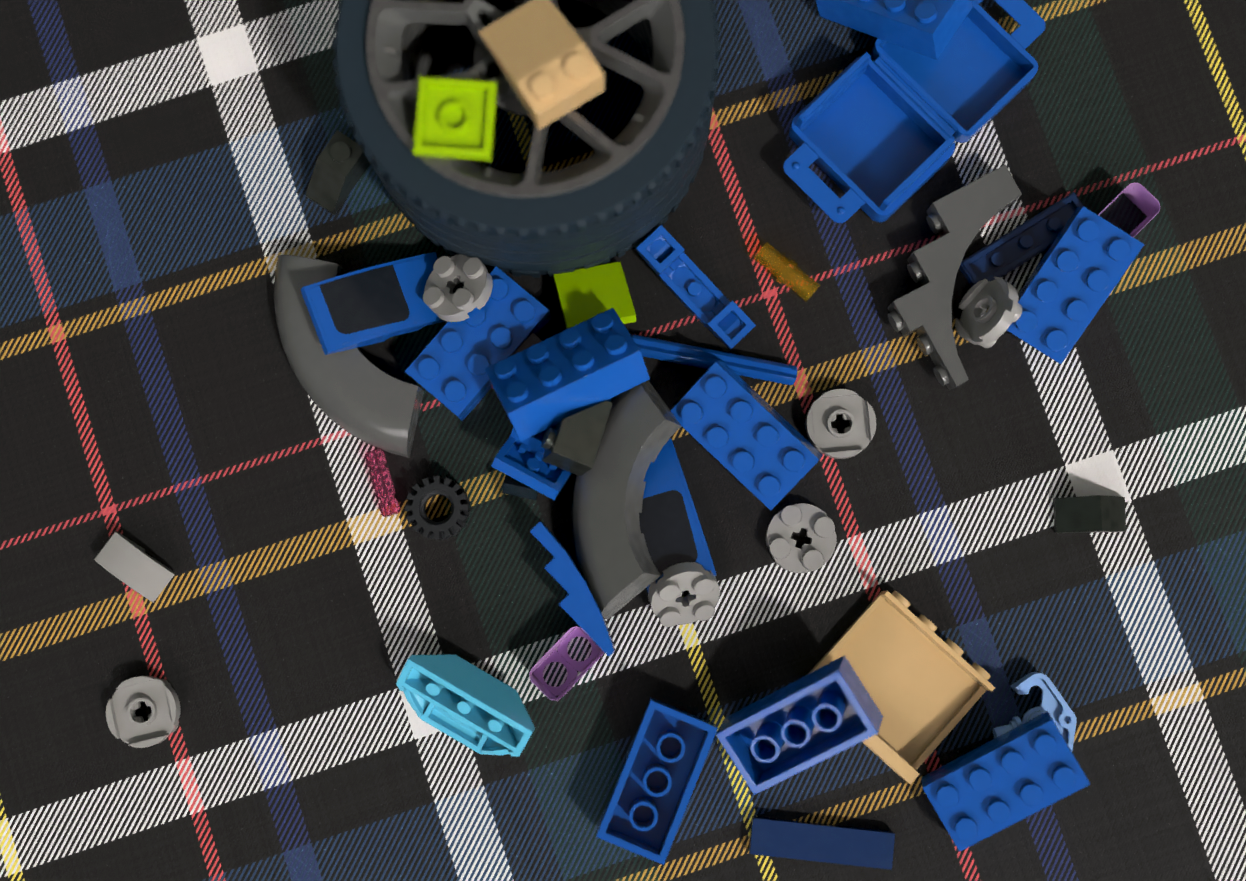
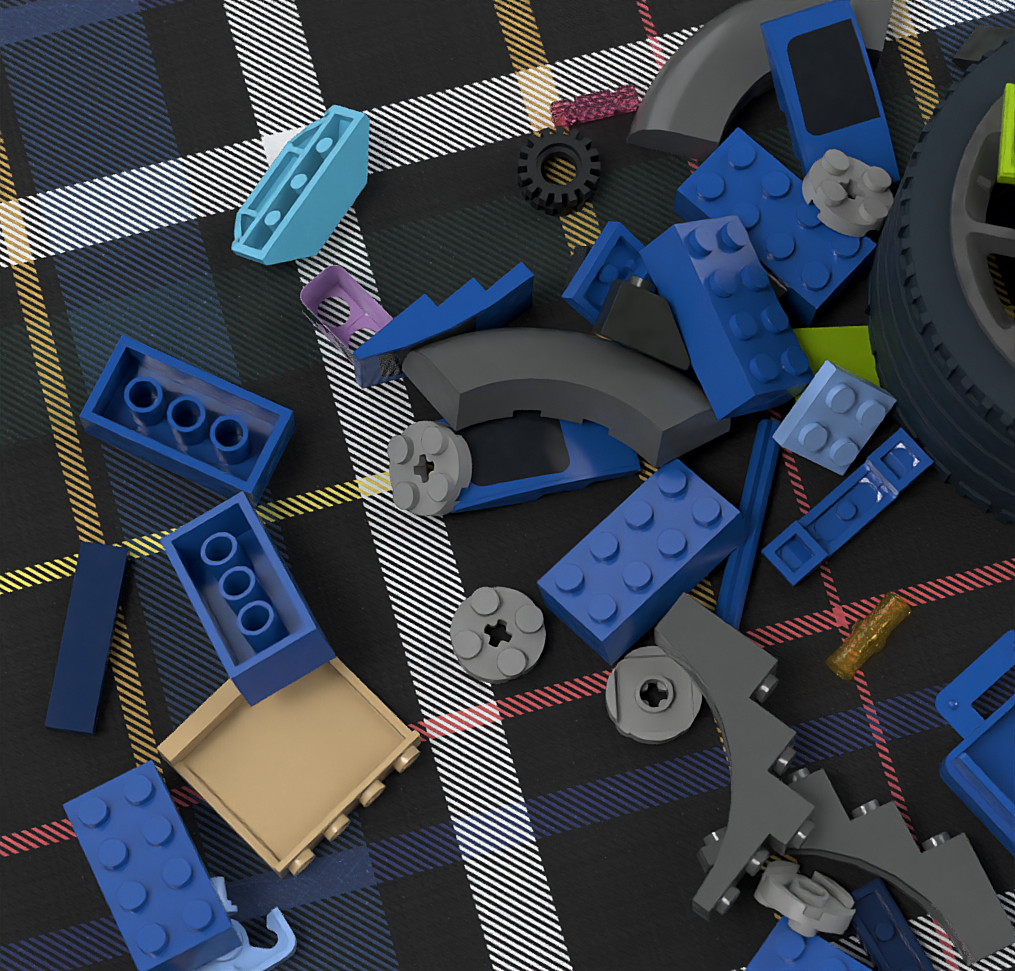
camera: 85 degrees right, 10 degrees down
(634, 295) = (834, 417): none -> light blue plate
(886, 347) = (763, 809): none -> dark grey arch

